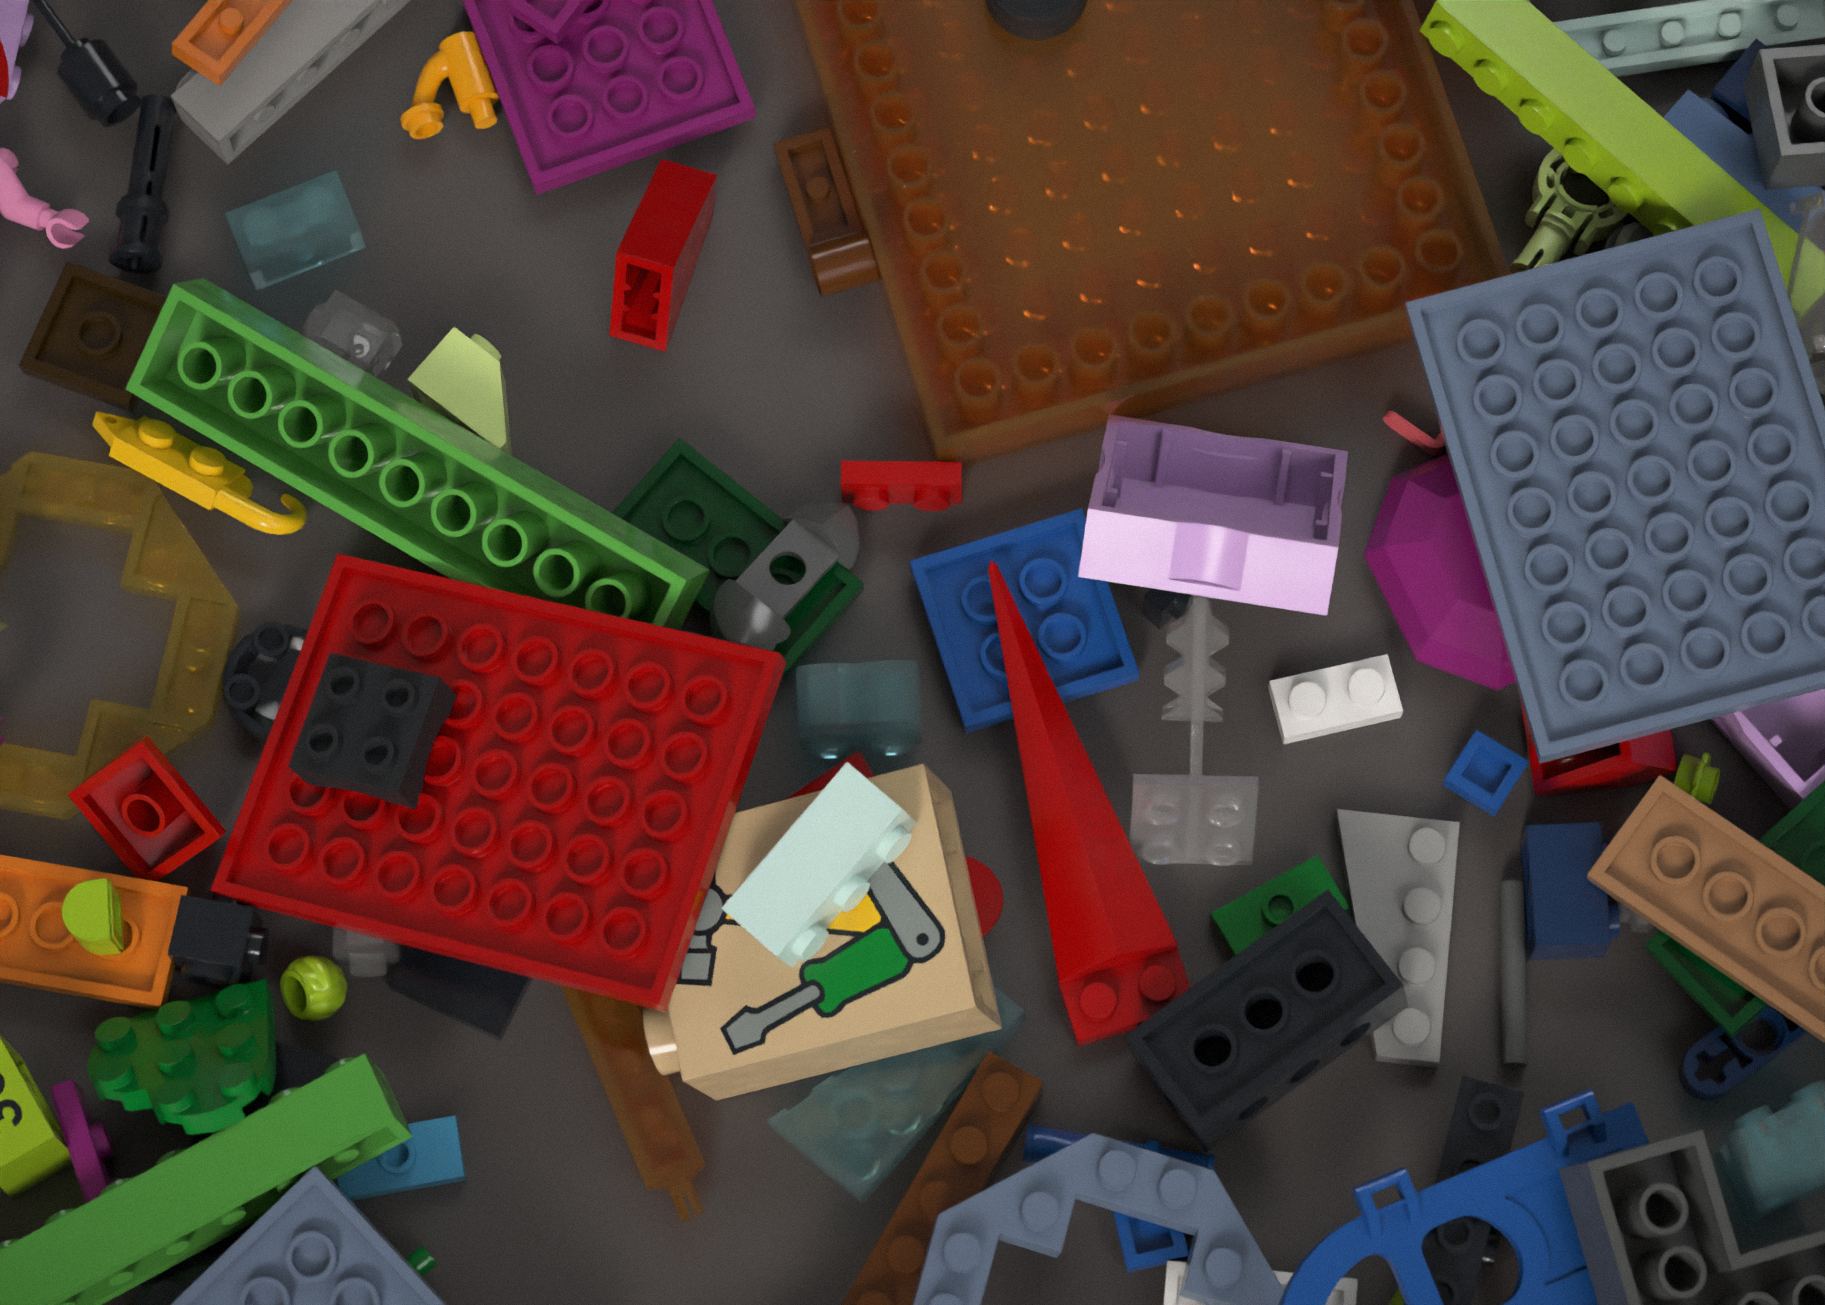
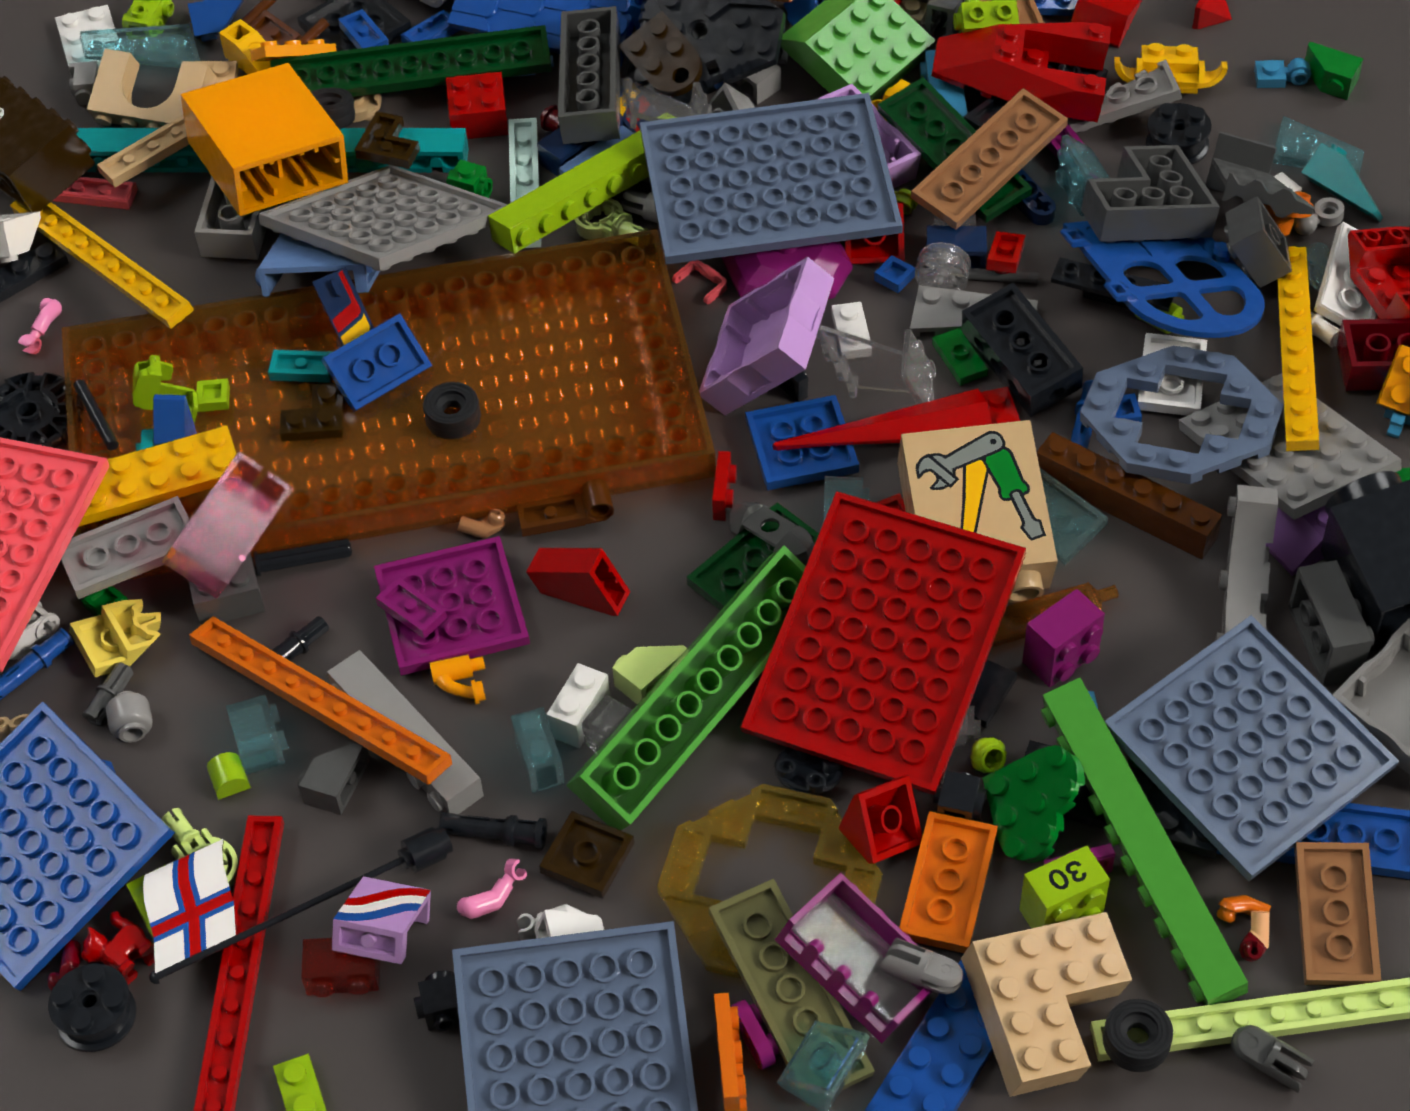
camera: 85 degrees left, 20 degrees down
(95, 916) = (950, 845): lime brick -> none
(193, 471) = (678, 805): yellow plate -> none
(371, 729) = (854, 694): black brick -> none
(392, 282) = (575, 702): none -> white brick
(550, 1108) = (1063, 638): none -> magenta brick
(787, 83) = (484, 528): none -> medium nougat arm
(821, 866) = (955, 475): light aqua brick -> none
(1483, 860) = (941, 260): none -> clear wheel
(1559, 991) = (1005, 252): none -> red plate

